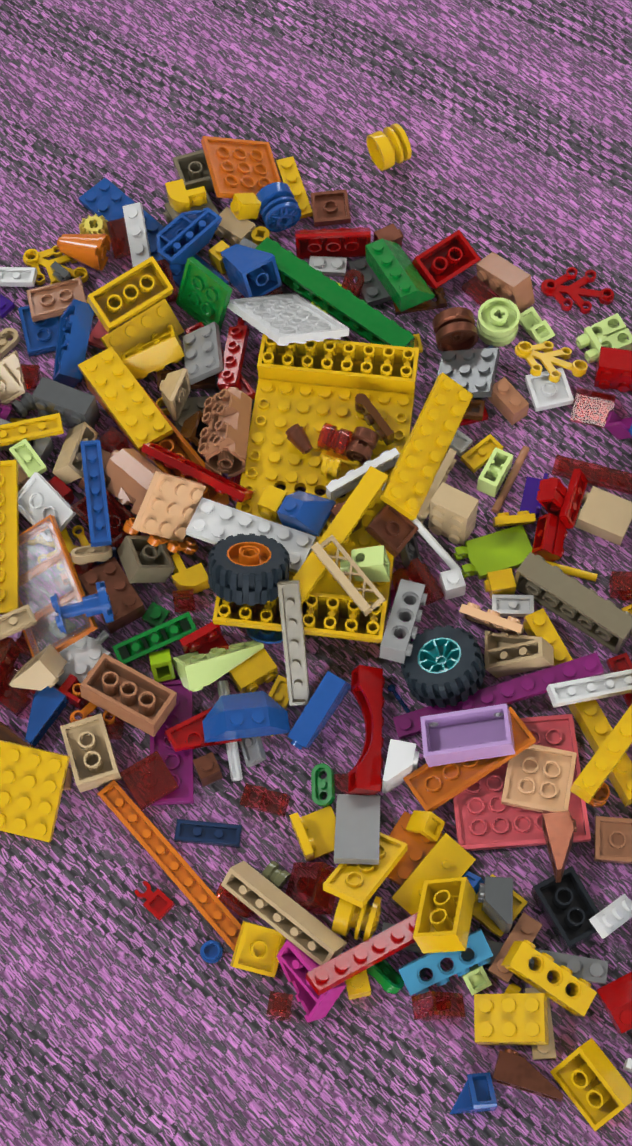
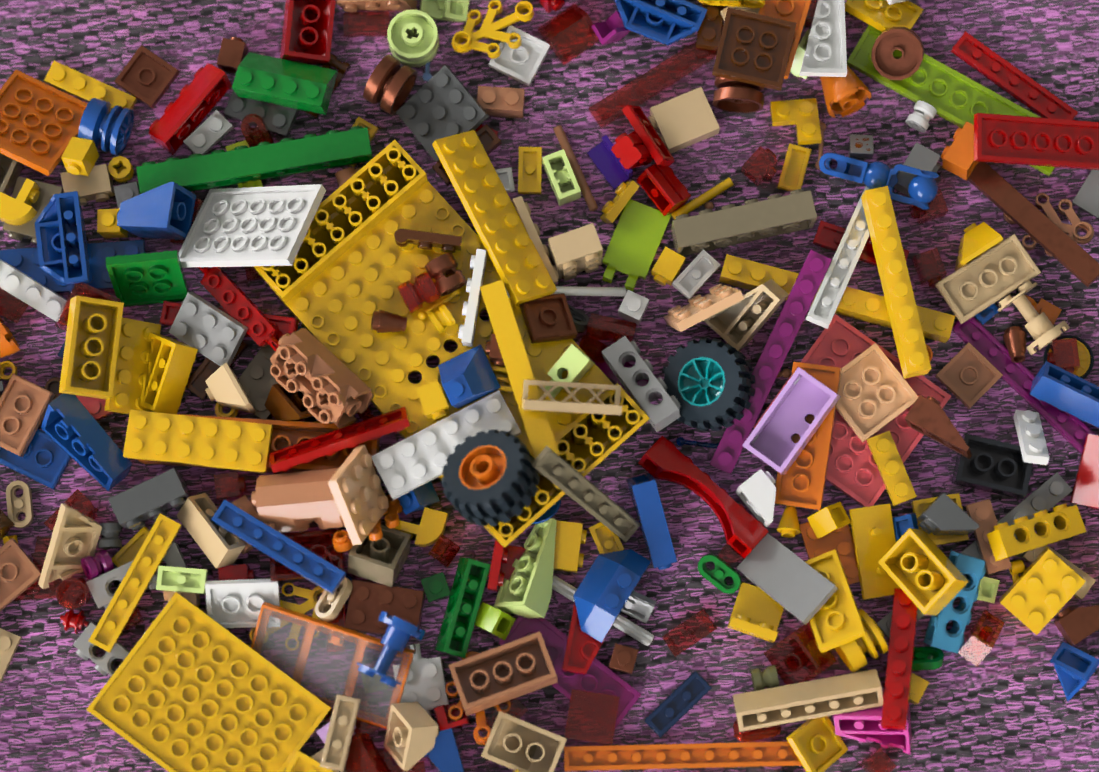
camera: 50 degrees left, 15 degrees up
(199, 552) = (419, 498): none -> blue brick
(399, 803) = (789, 523): none -> yellow cone
(500, 838) = (891, 468): none -> yellow plate

